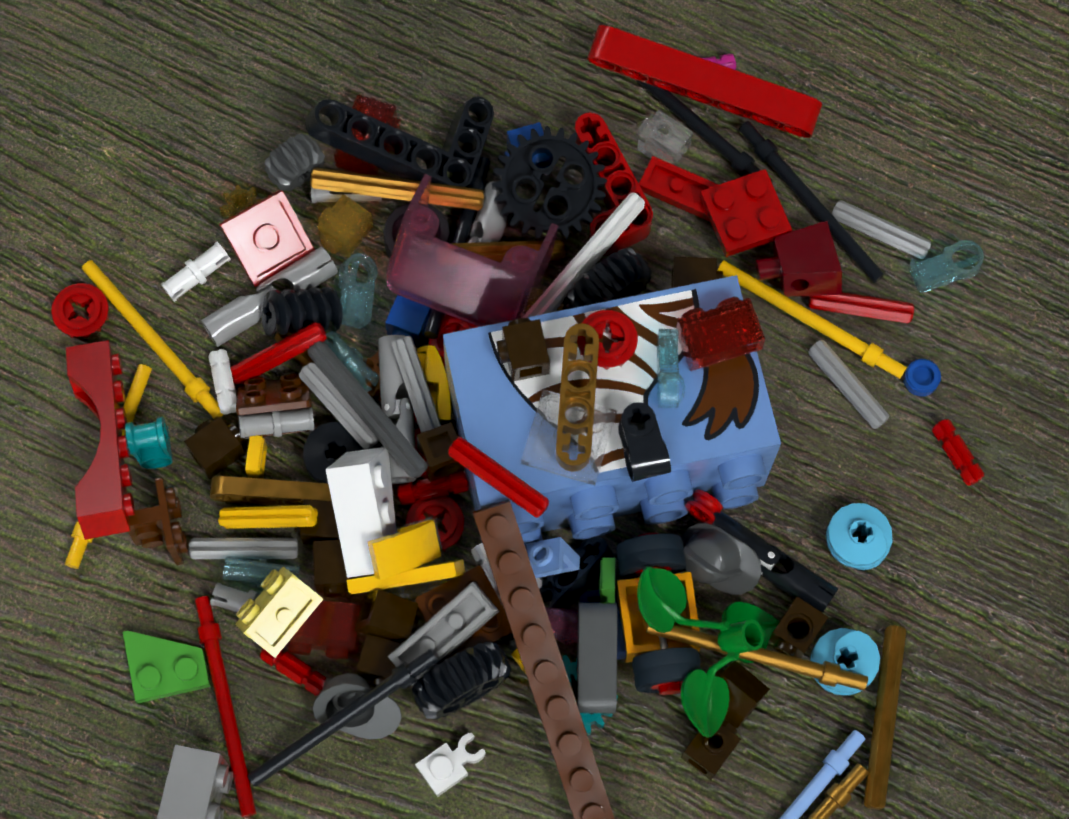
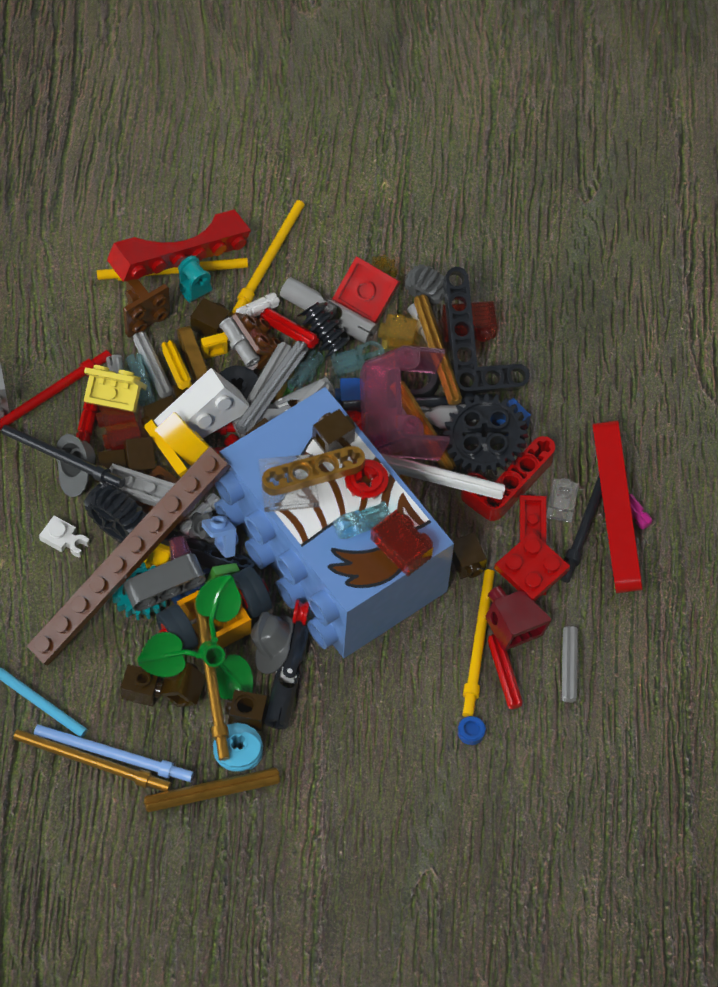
camera: 65 degrees right, 10 degrees down
(82, 295) = (262, 203): red gear -> none
(163, 667) = (54, 351): bright green wing -> none
(195, 271) = (324, 262): white pin -> none
(498, 477) = (241, 452): red axle -> none
(613, 278) = (436, 497): black gear -> none
(643, 449) = (299, 526): black piece -> none
(767, 152) = (589, 571): black bar -> none
(848, 384) = (442, 683): light grey axle -> none
(871, 524) = (326, 737): medium azure piece -> none
(941, 268) = (559, 714): clear light blue piece -> none
(958, 452) = (426, 771): red axle -> none

